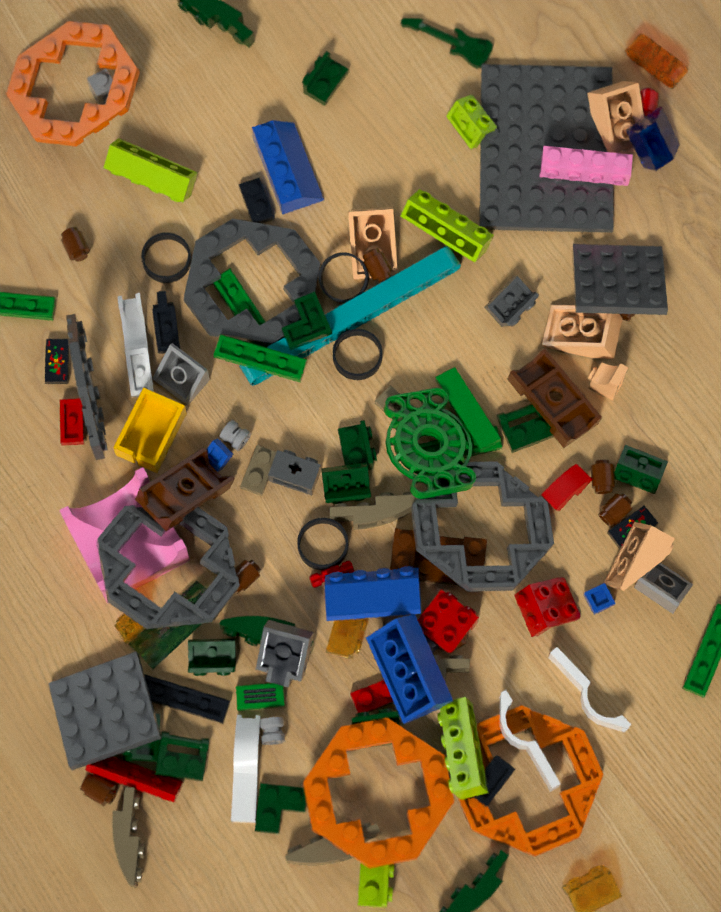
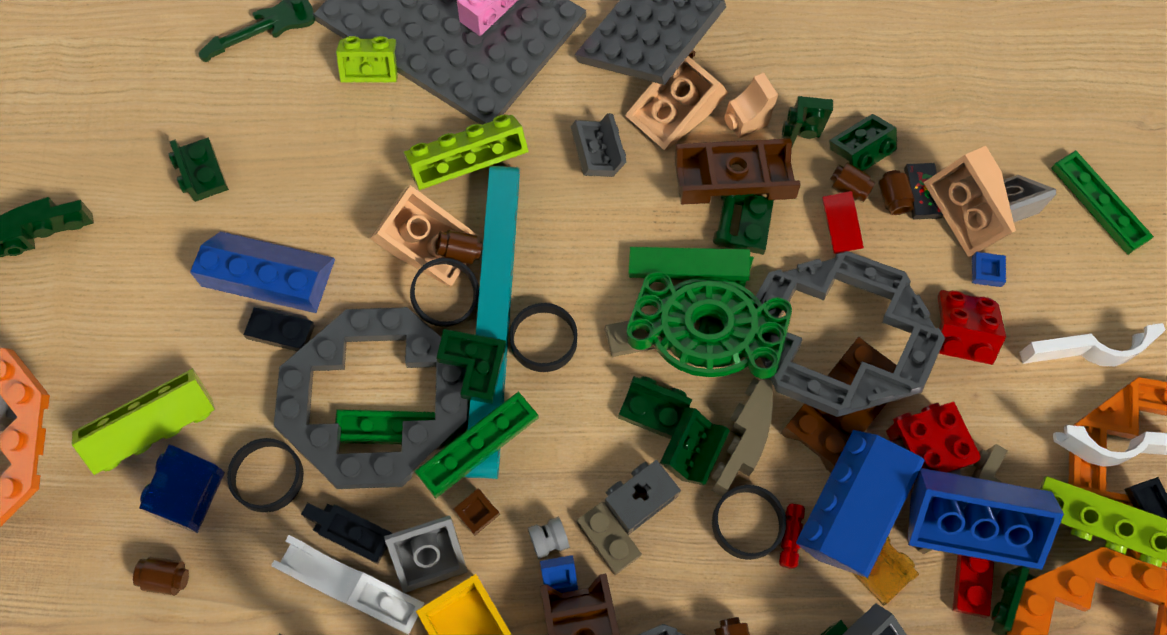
camera: 60 degrees left, 5 degrees down
(126, 219) = (181, 489): none -> clear blue slope
(223, 386) = (476, 511): none -> reddish brown plate
(622, 412) = (807, 118): none -> dark green bracket

